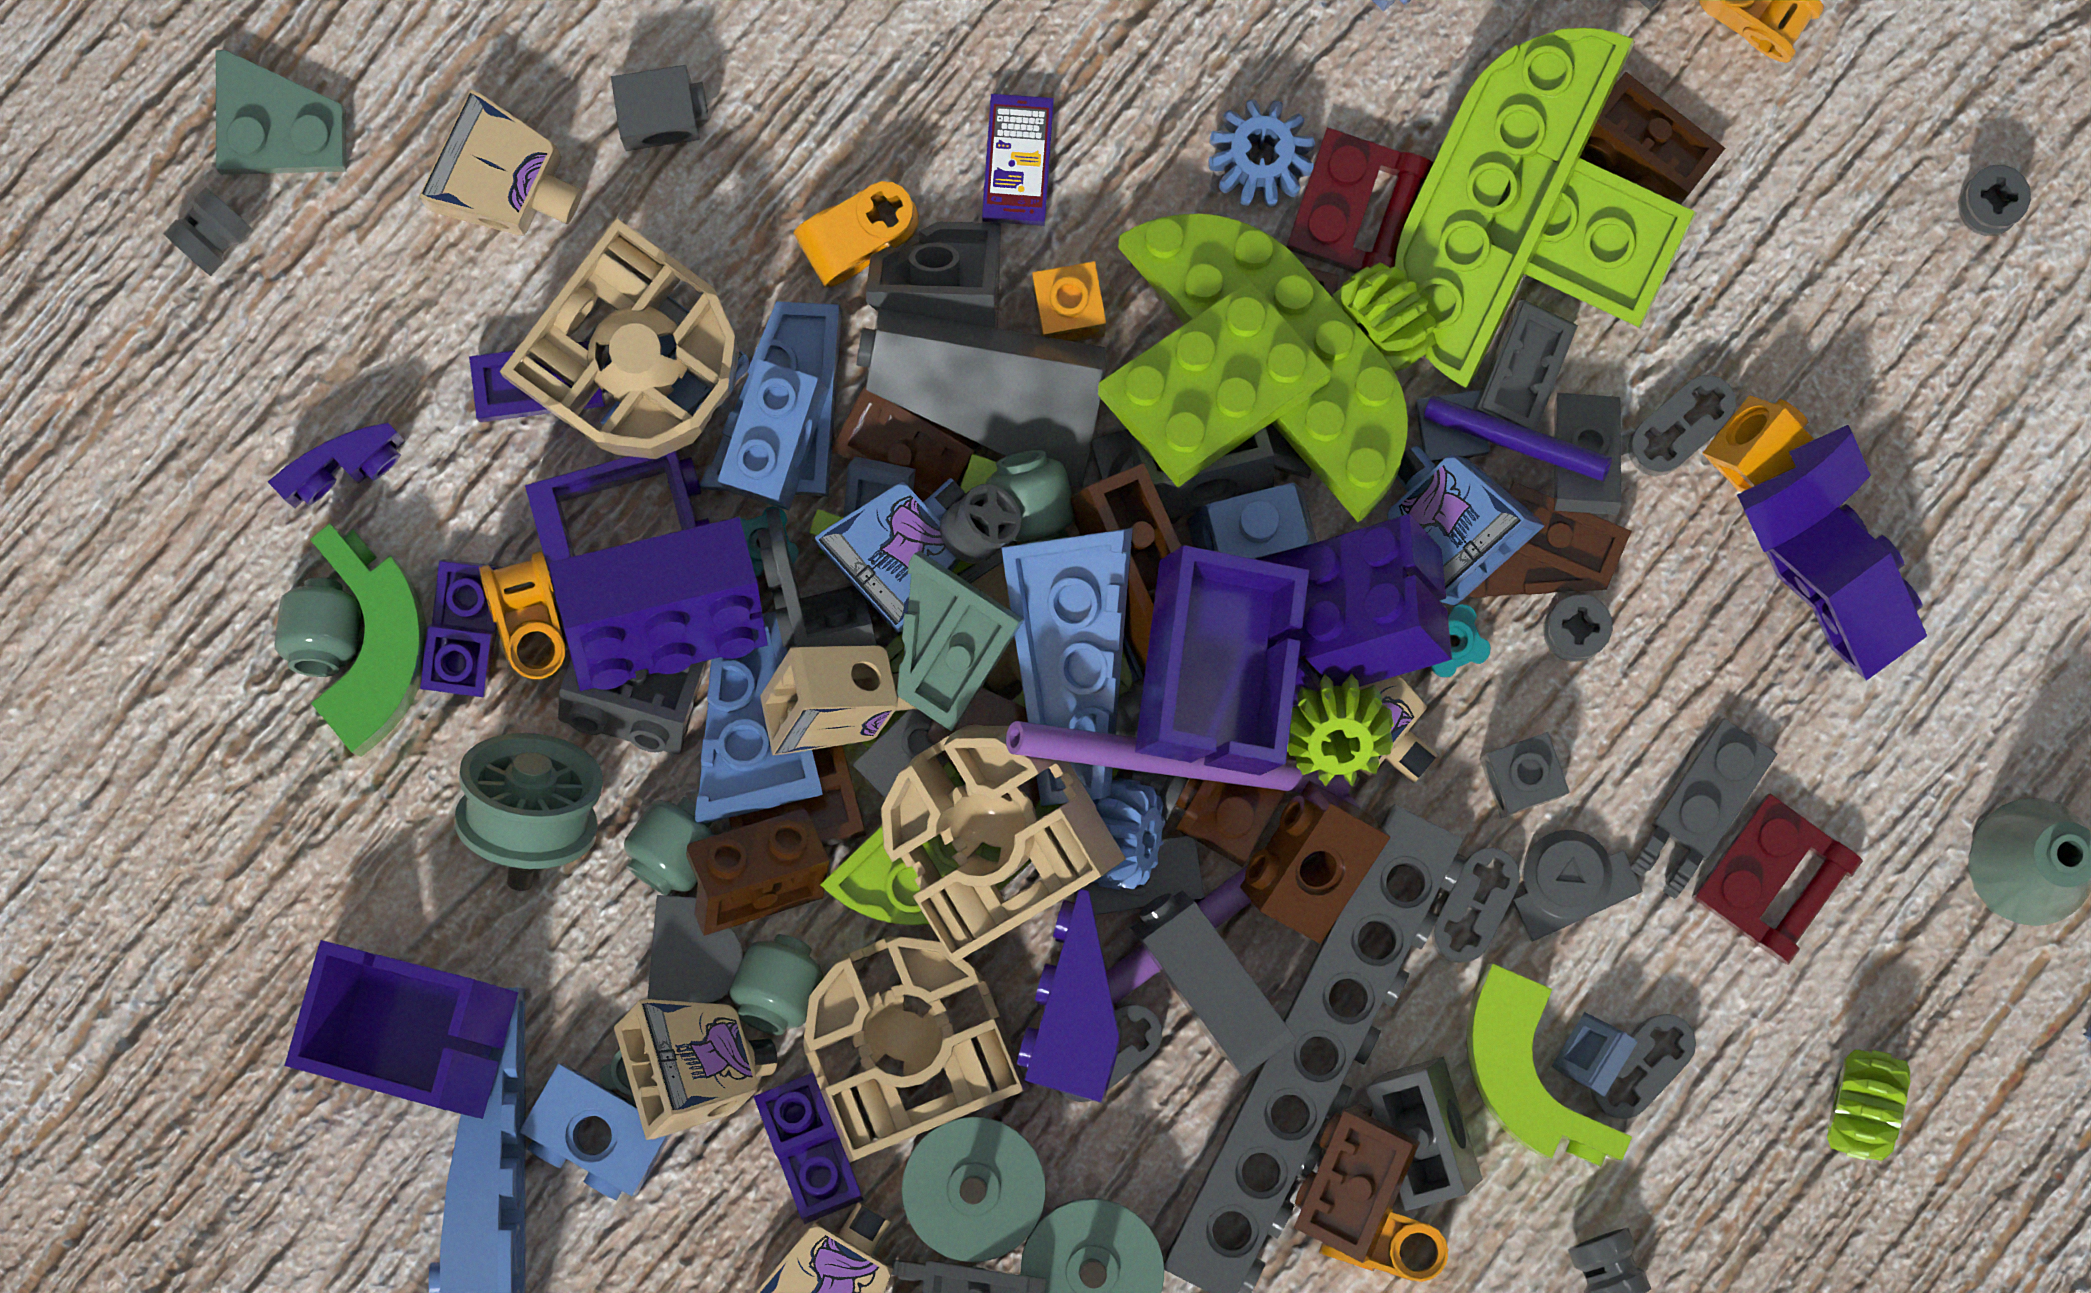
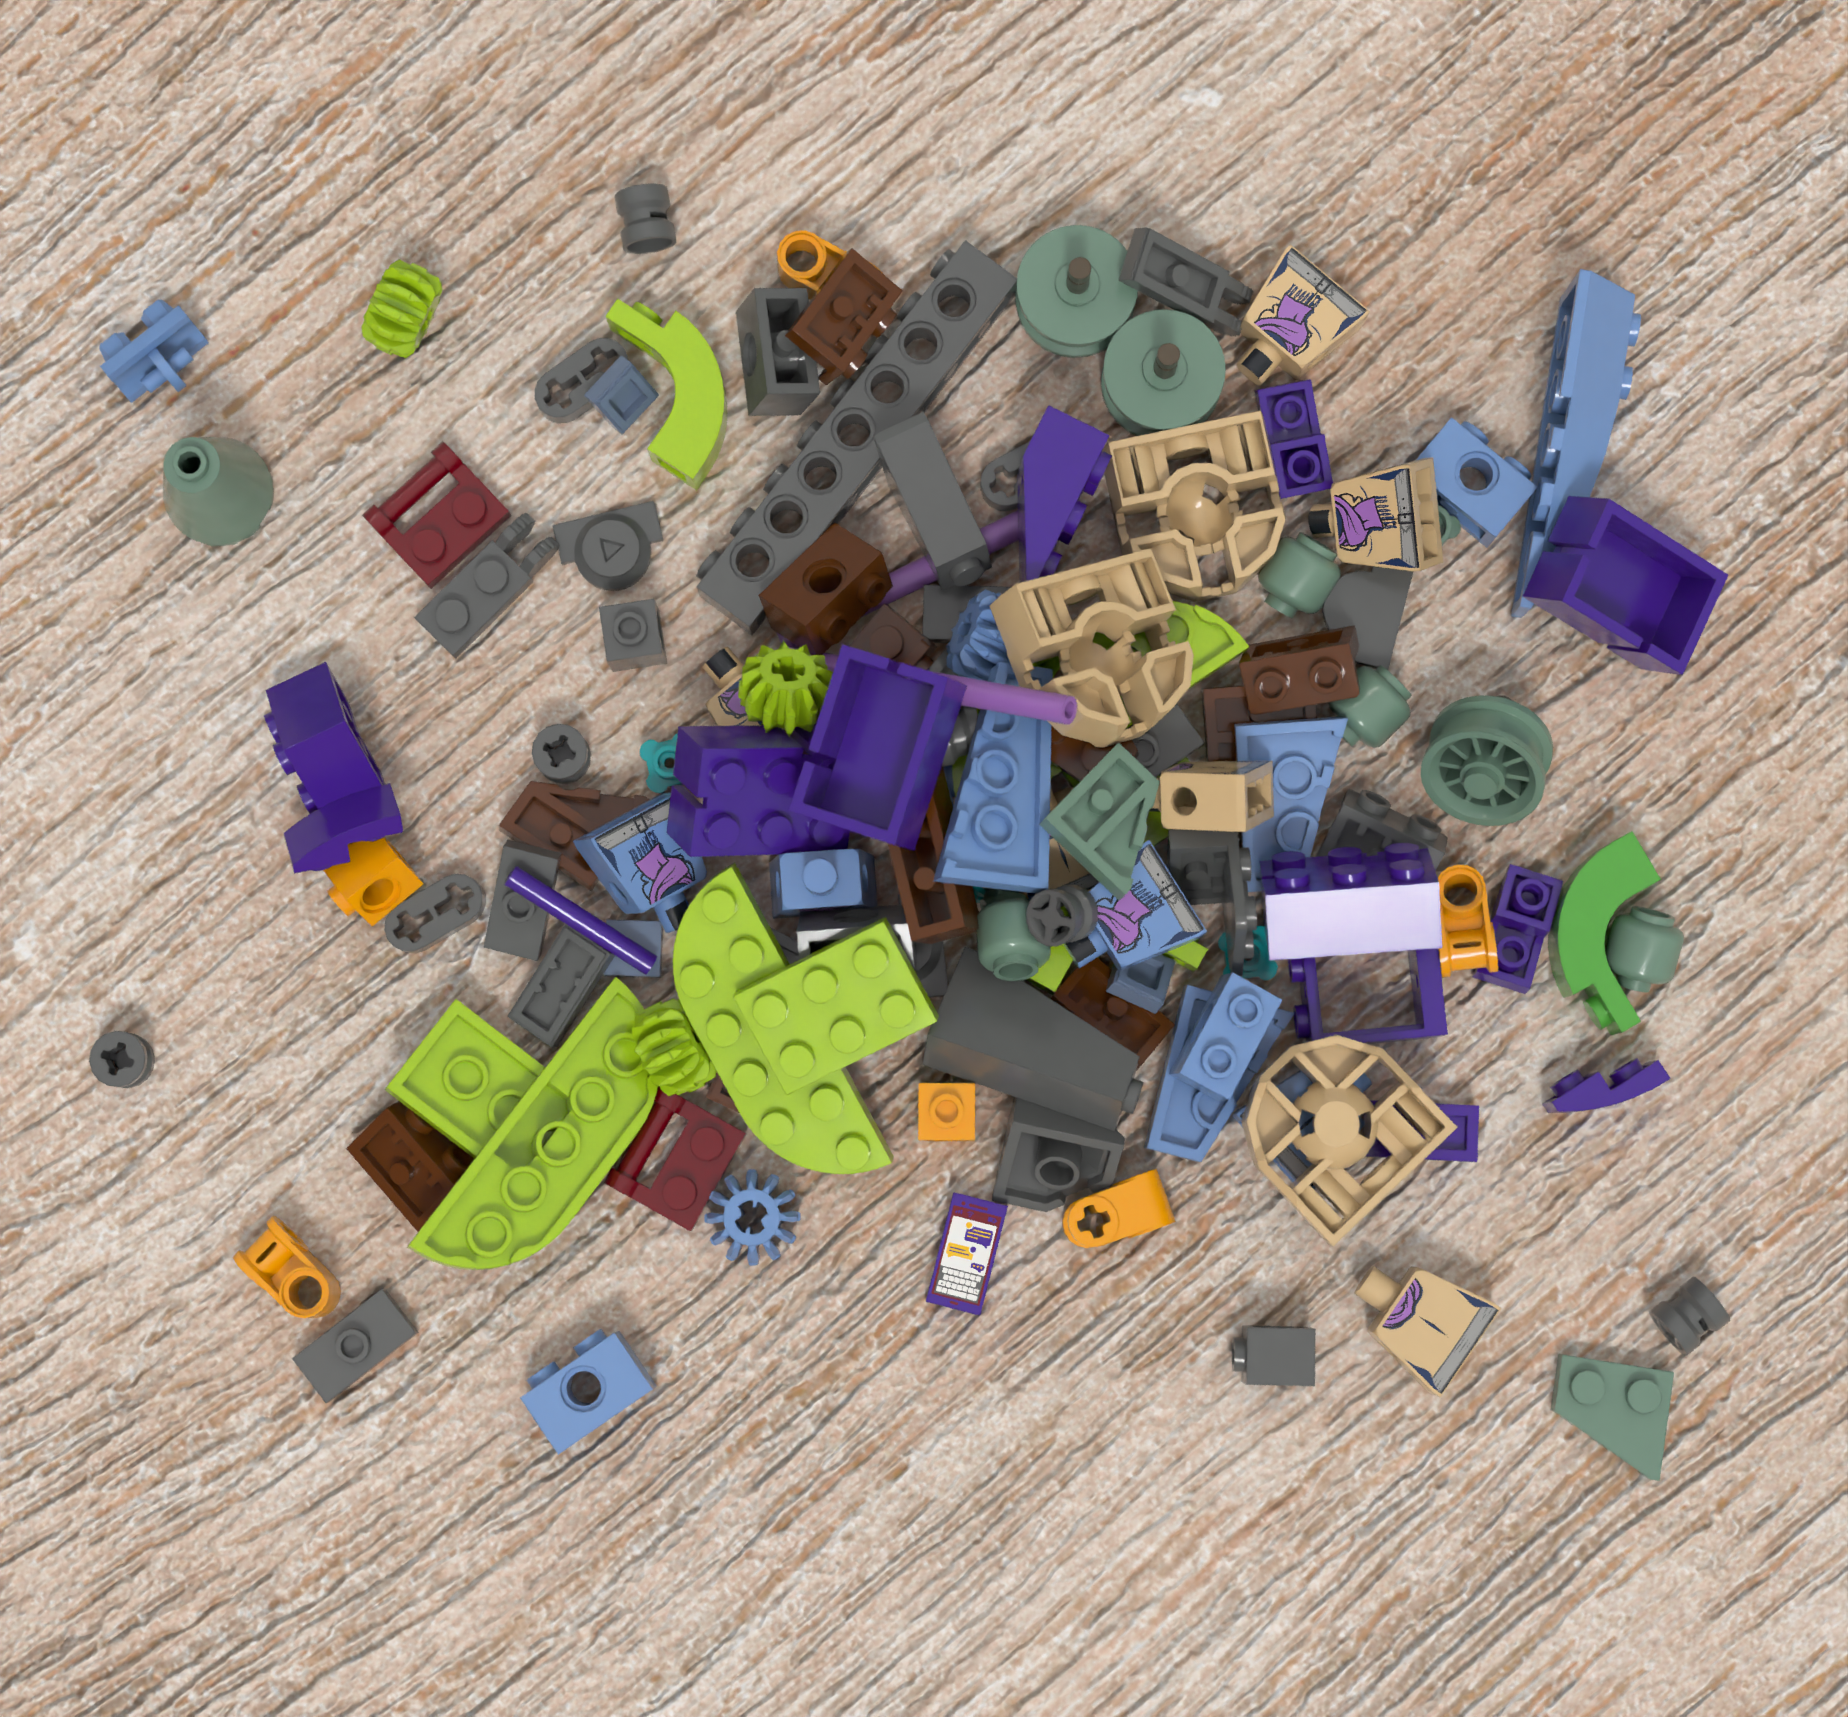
camera: 165 degrees left, 0 degrees up
(1489, 912) = (685, 530): dark grey beam -> none

